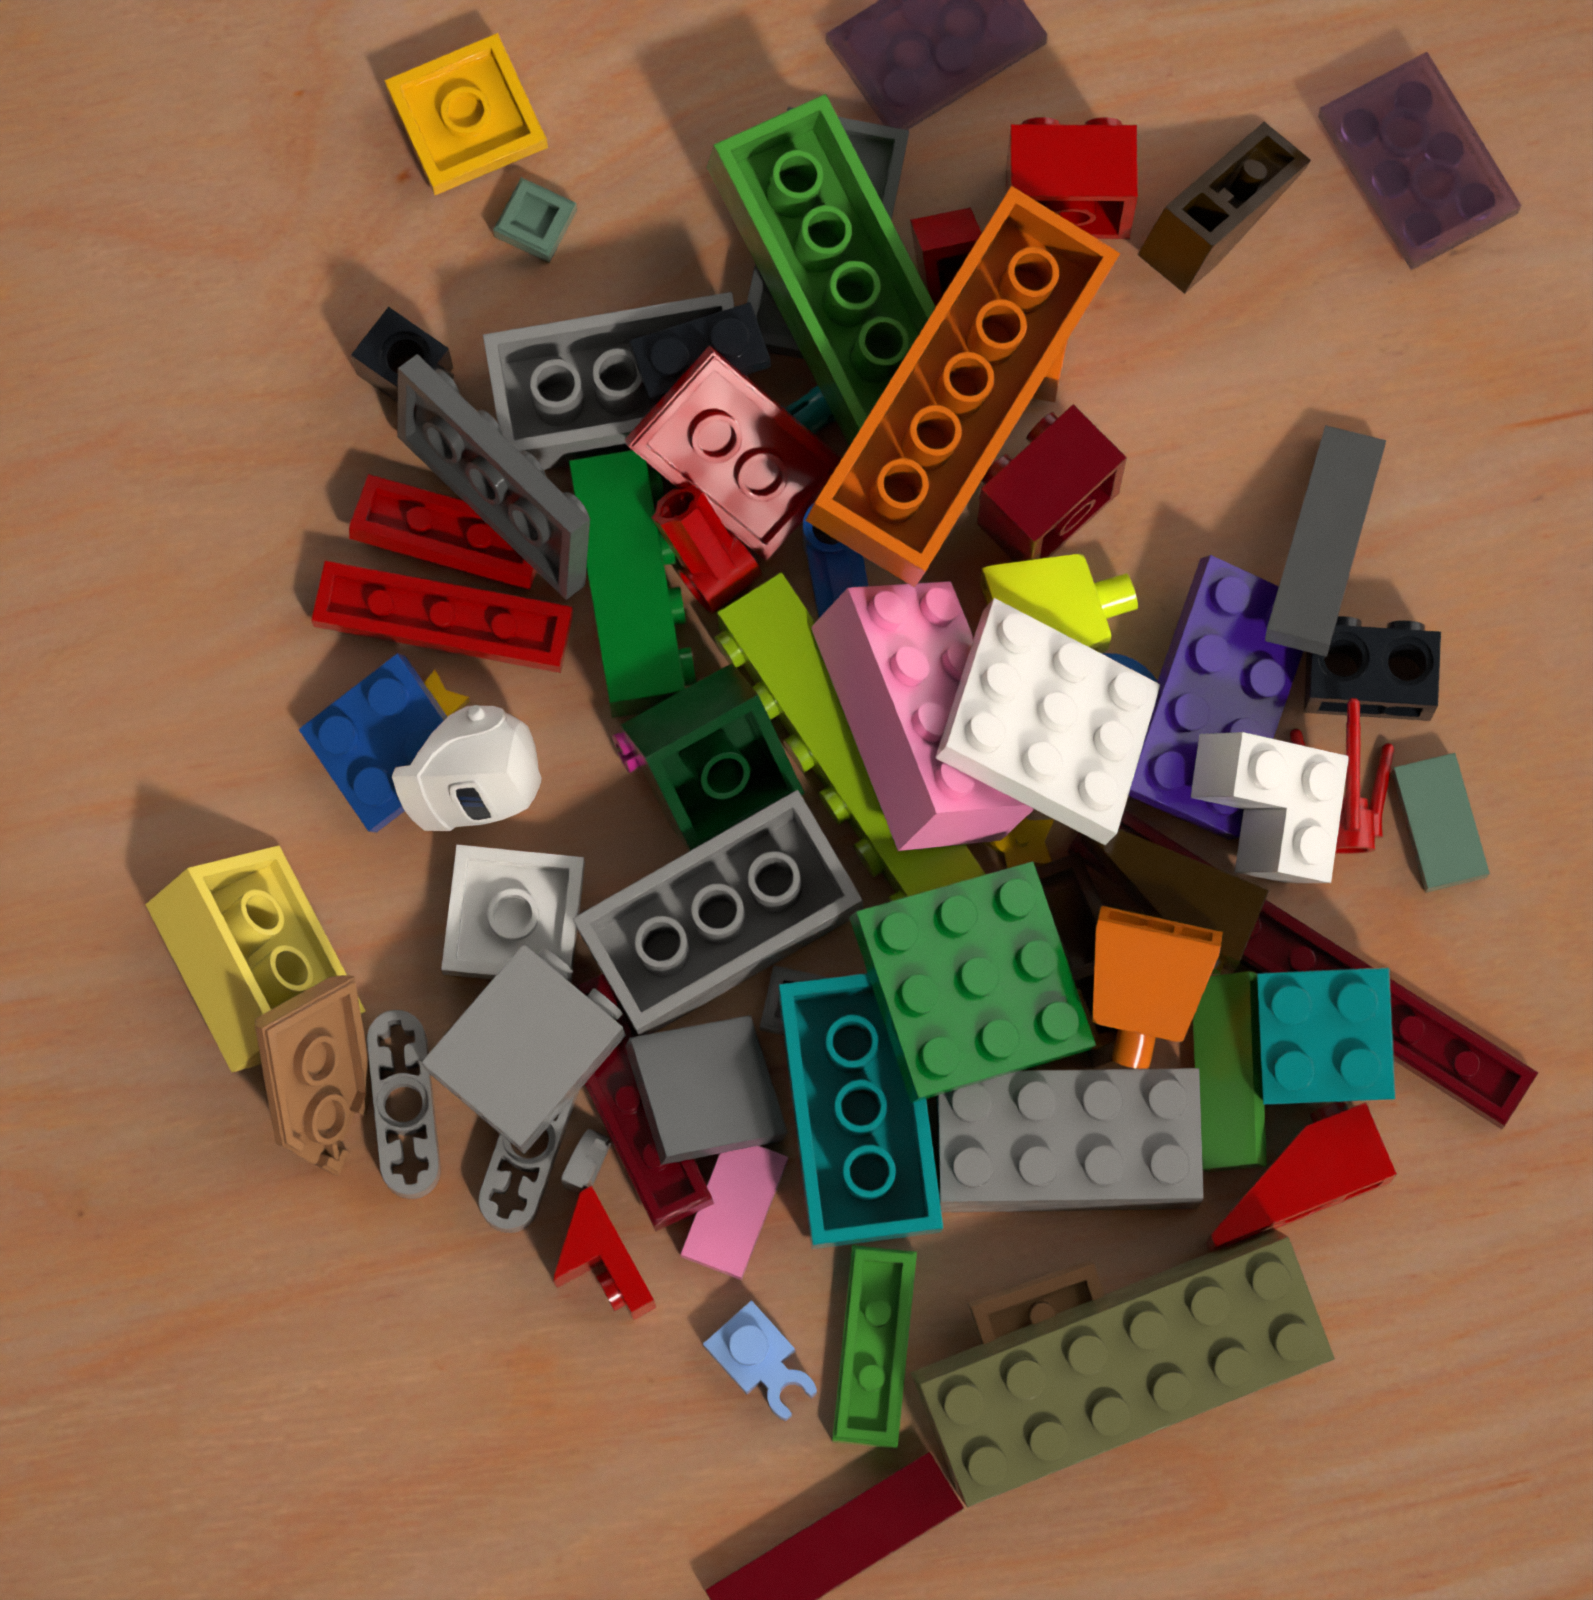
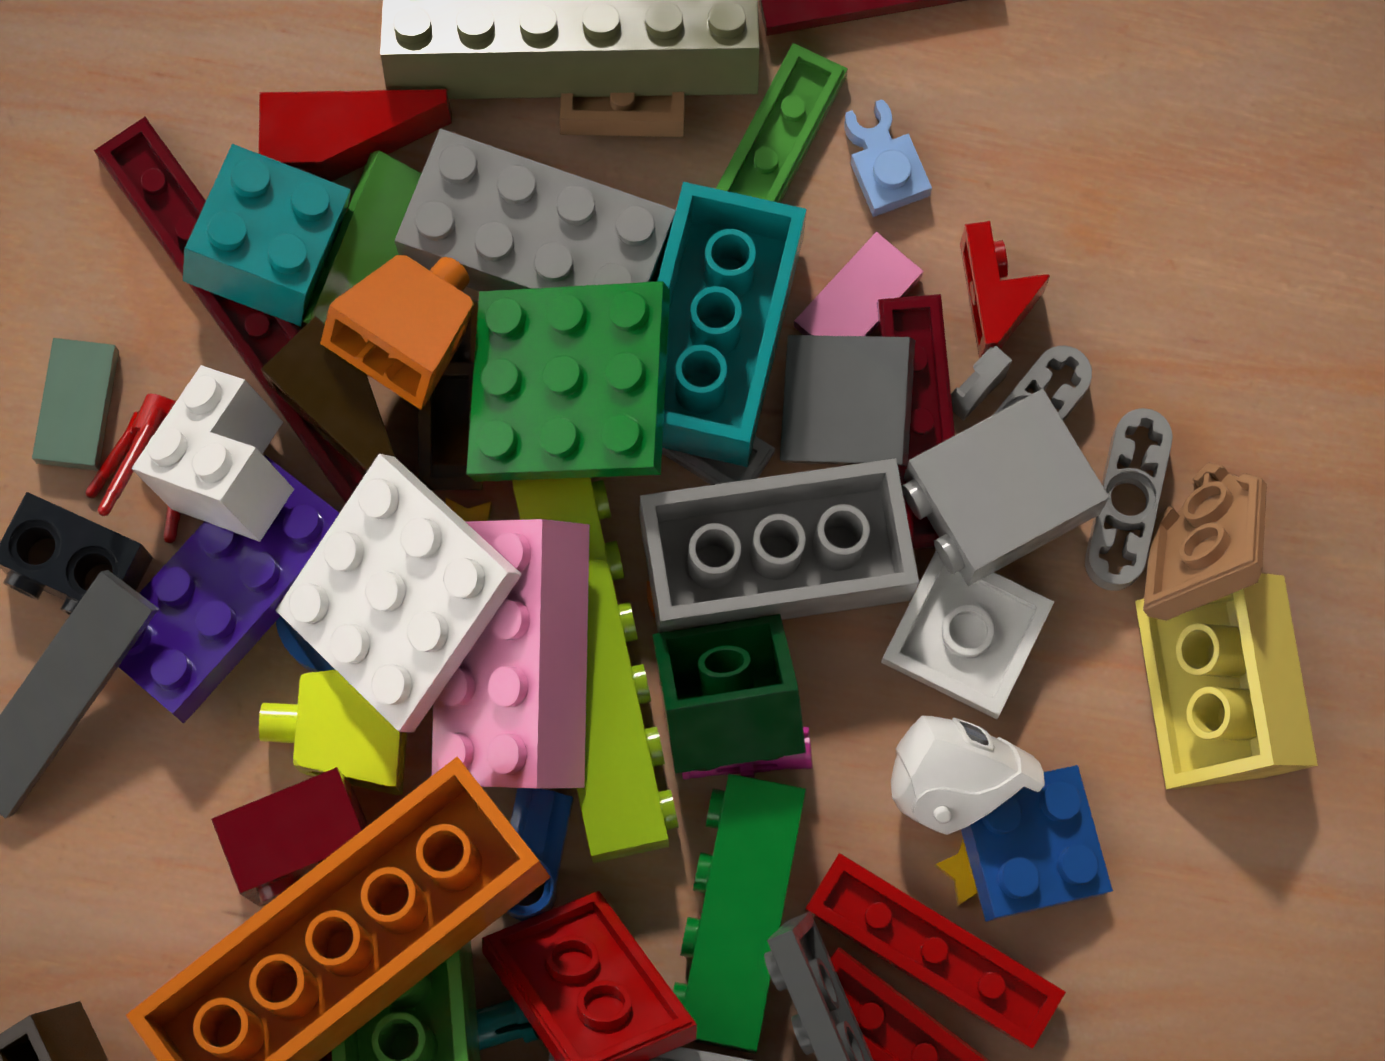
camera: 160 degrees left, 0 degrees up
(711, 557) = (656, 912): red piece -> none

